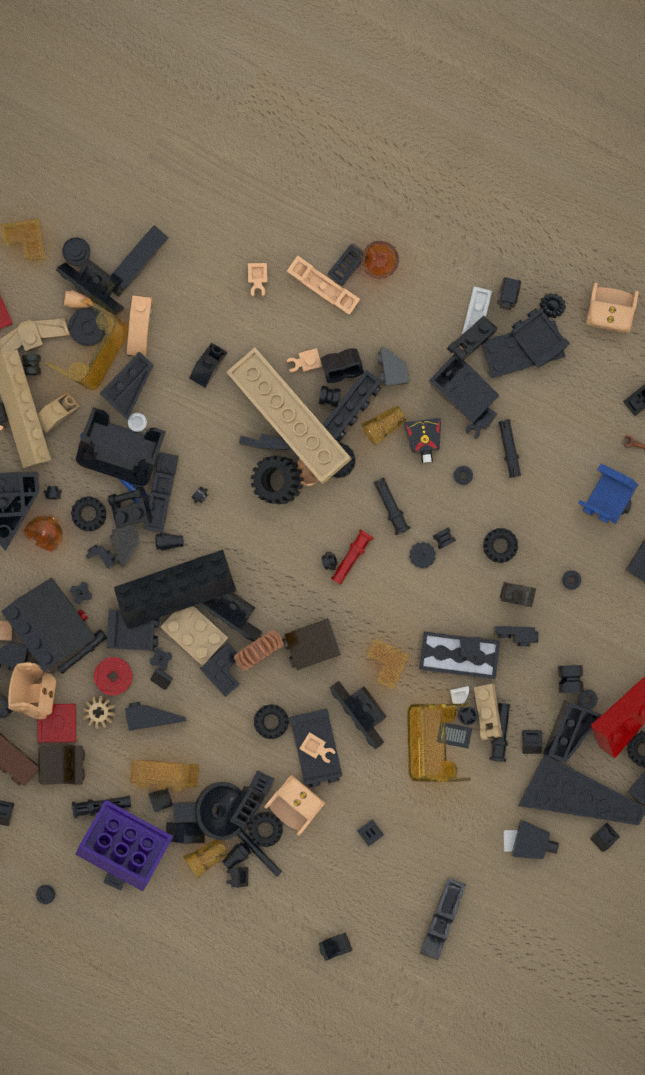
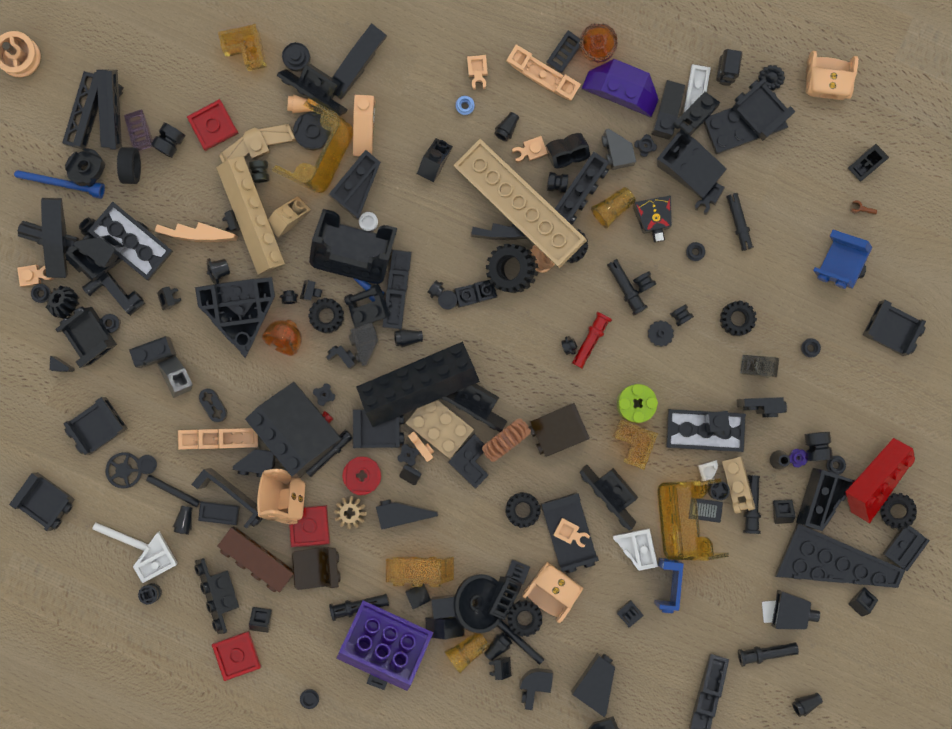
camera: 10 degrees left, 0 degrees up
(72, 487) = (308, 291): none -> black tile
(178, 655) = (425, 449): none -> light nougat plate
(211, 506) = (447, 300): none -> black plate
(238, 307) = (465, 99): none -> light blue plate
(238, 502) = (475, 293): none -> black slope
(270, 891) = (535, 680): none -> black brick
(282, 337) = (506, 128): none -> black cone
(331, 899) = (596, 684): none -> black slope
(384, 768) = (639, 548): none -> white wing
(392, 612) = (625, 403): none -> lime brick
(403, 303) = (623, 86): none -> dark purple wedge
(409, 502) = (644, 282): none -> black wheel
(418, 786) = (674, 603): none -> blue panel
(426, 365) = (651, 146): none -> black plate
(446, 329) = (668, 110): none -> black slope
(495, 882) = (759, 654): none -> black pin
(525, 689) = (776, 457): none -> black cone
(539, 934) = (806, 704): none -> black cone
(545, 689) = (793, 457): none -> dark purple plate

